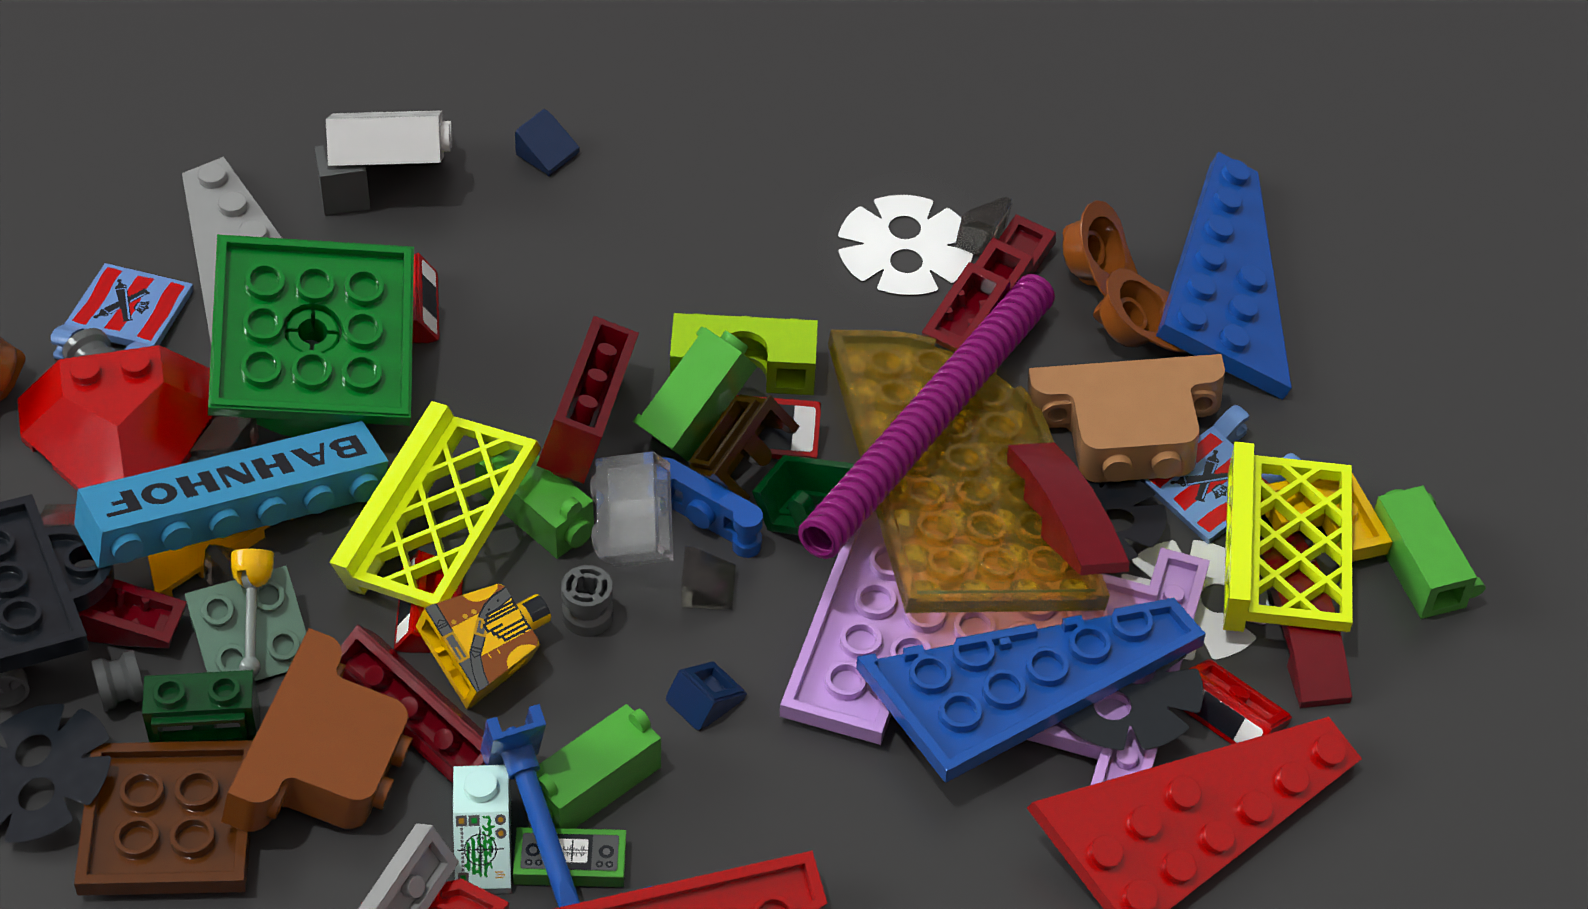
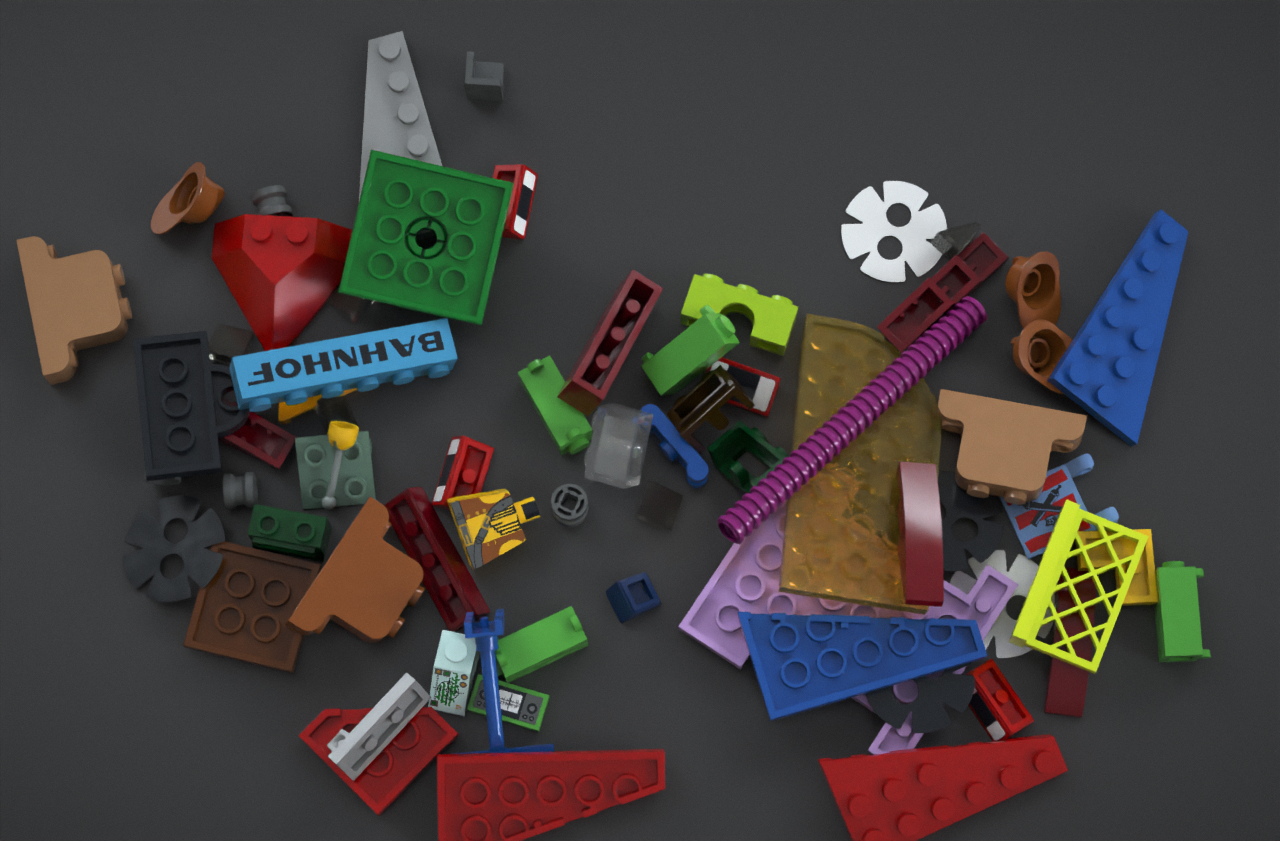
camera: 20 degrees right, 25 degrees up
(126, 306) = (304, 159): flag -> none
(387, 138) = (524, 53): white brick -> none
(404, 497) = (463, 387): neon yellow fence -> none
(544, 143) = (646, 72): dark blue slope -> none

